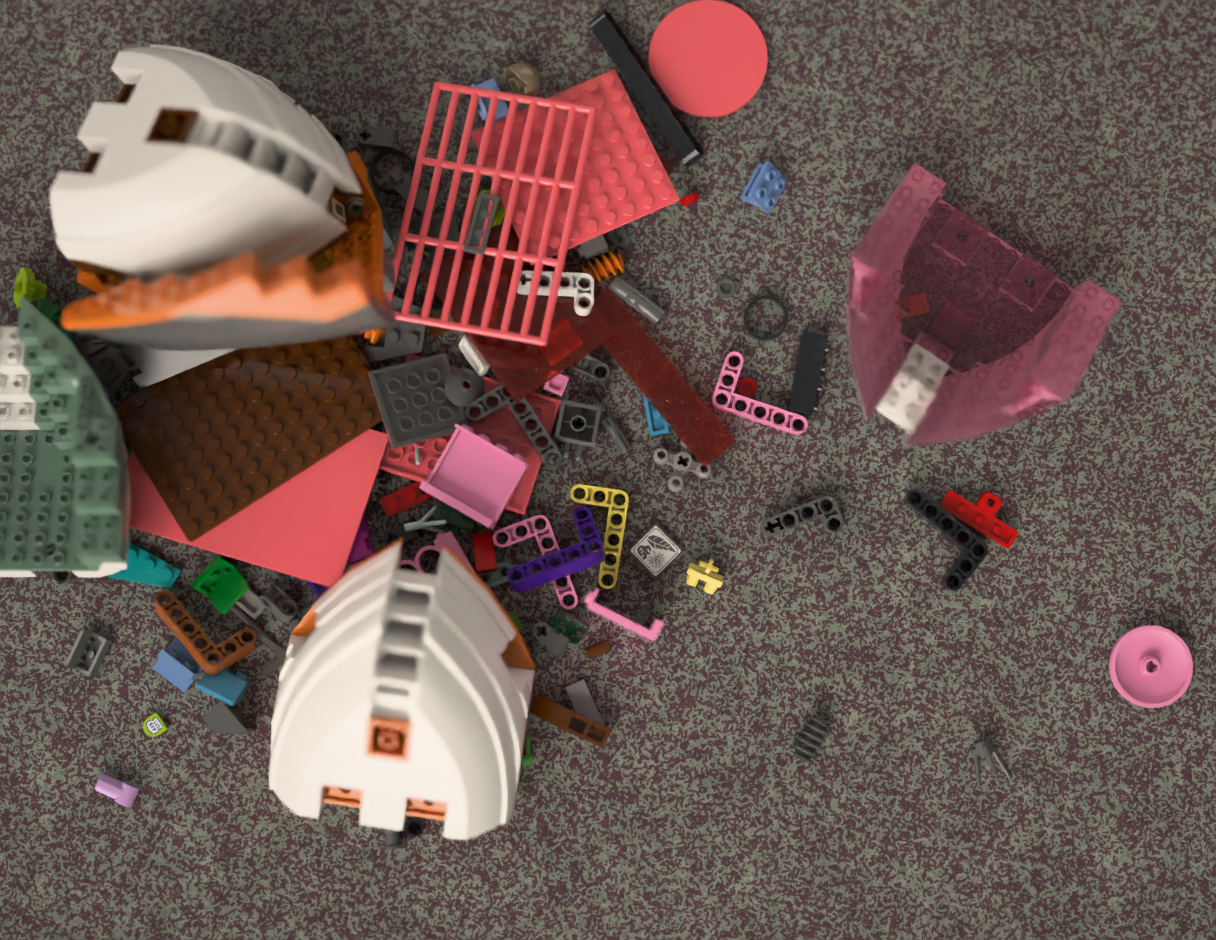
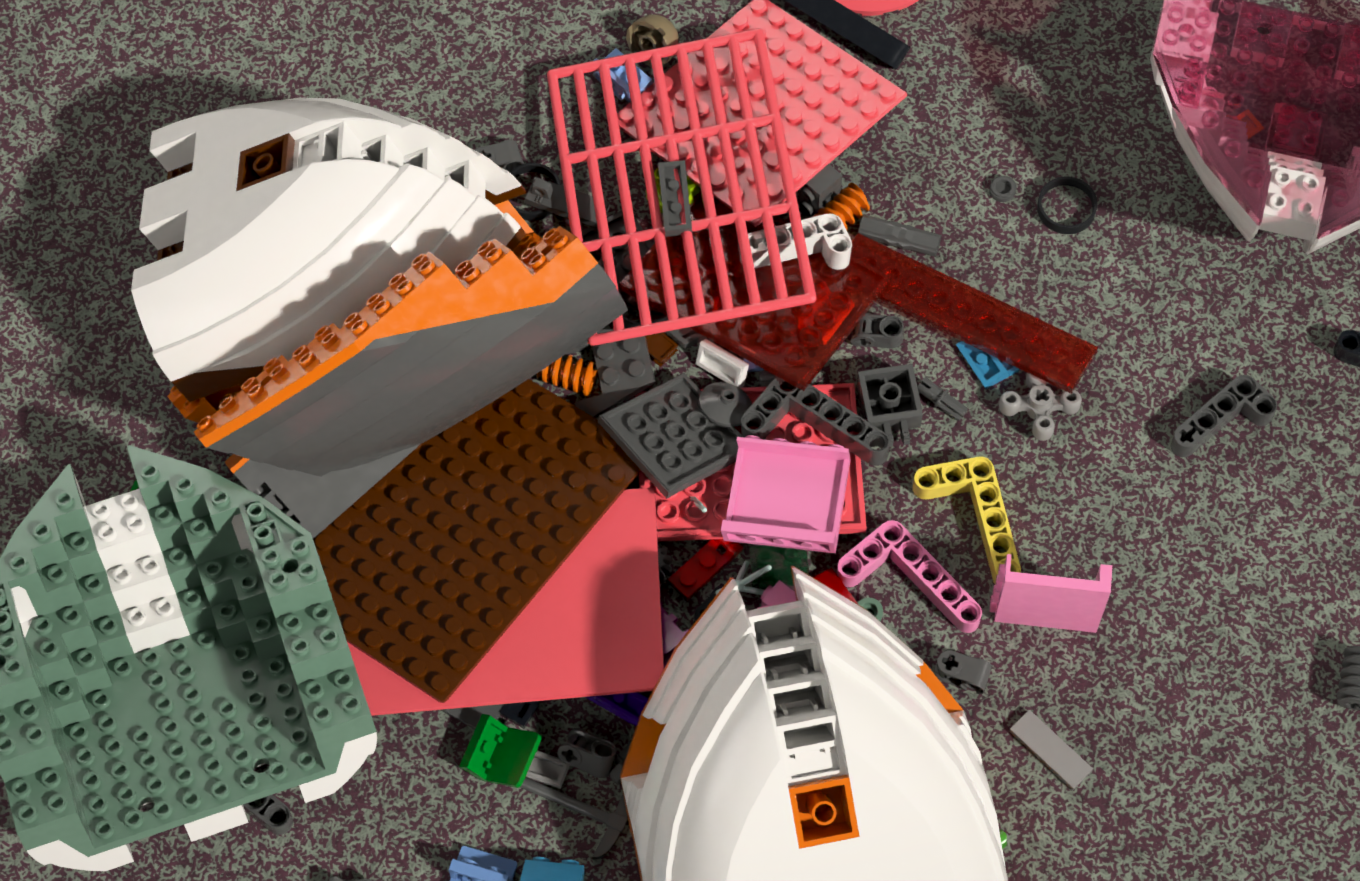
camera: 20 degrees left, 20 degrees down
(28, 287) = (107, 475): lime plant -> none
(147, 569) = (389, 775): teal wing -> none
(199, 637) = (497, 834): dark orange beam -> none
(557, 385) = (841, 365): bright pink plate -> none
(563, 557) = (966, 542): dark purple beam -> none
(566, 623) = (981, 644): clear green hips -> none
(570, 721) = (1038, 762): reddish brown slope -> none
(598, 649) = (1036, 662): reddish brown pin -> none
(655, 550) = (1052, 521): tile -> none
(689, 199) = (914, 103): red tile -> none
(704, 572) = (1142, 529): light yellow hips -> none
(746, 387) = (1079, 292): red tile -> none
(748, 413) = (1096, 305): bright pink beam -> none
(764, 187) = (998, 59): medium blue bracket -> none
(807, 373) = (1149, 248): black brick -> none

